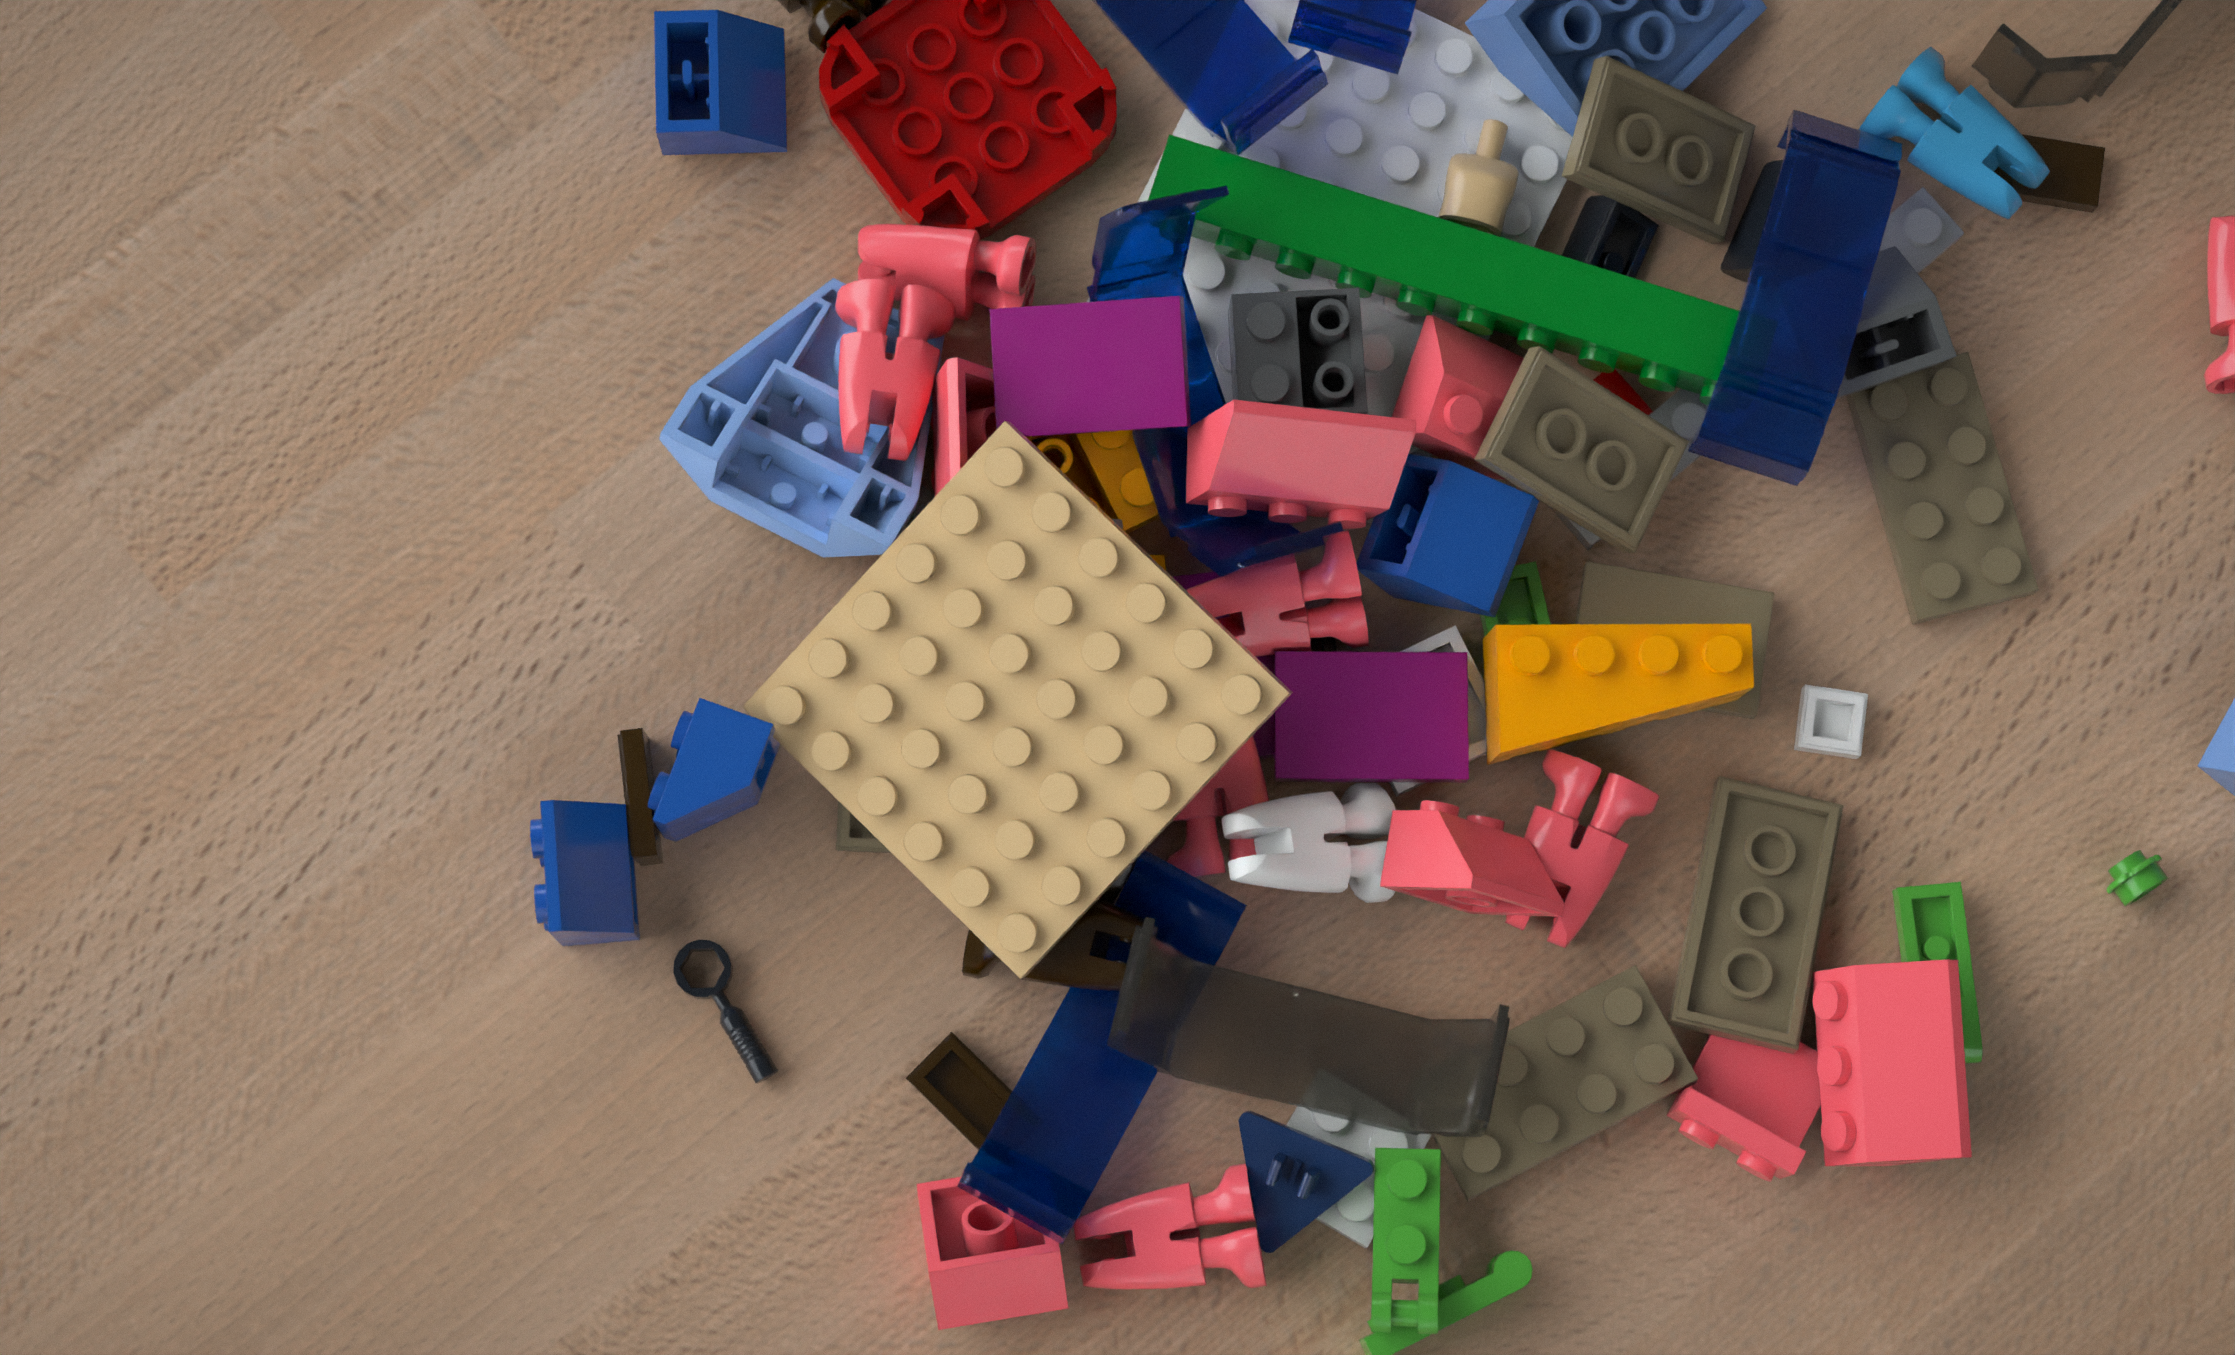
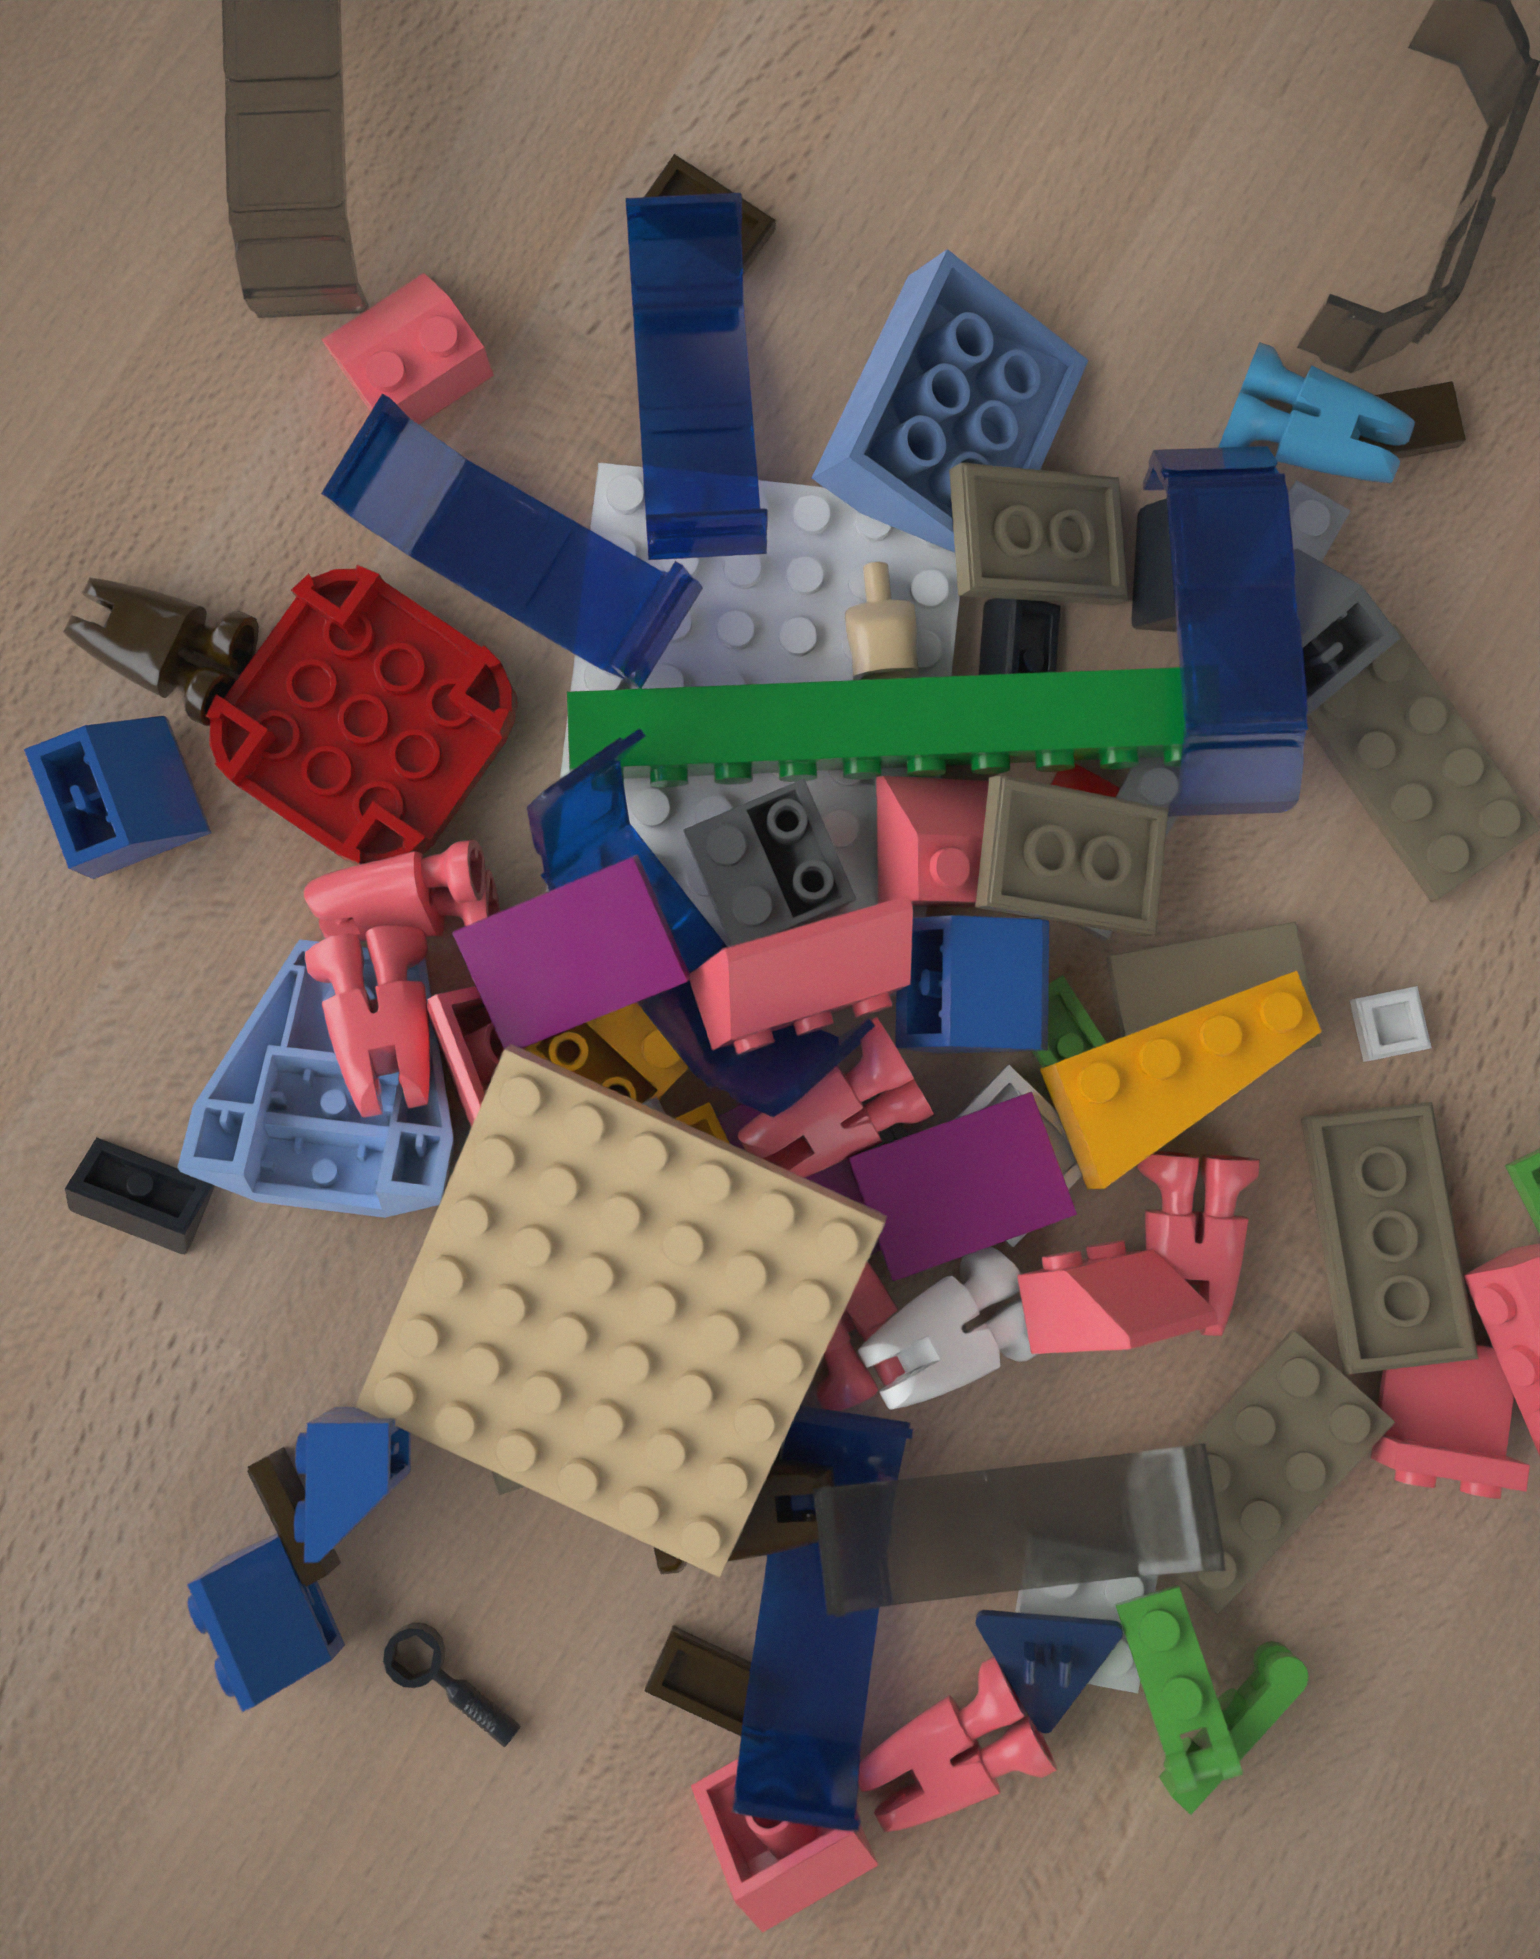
camera: 15 degrees left, 5 degrees up
(599, 459) = (138, 1196): none -> black slope

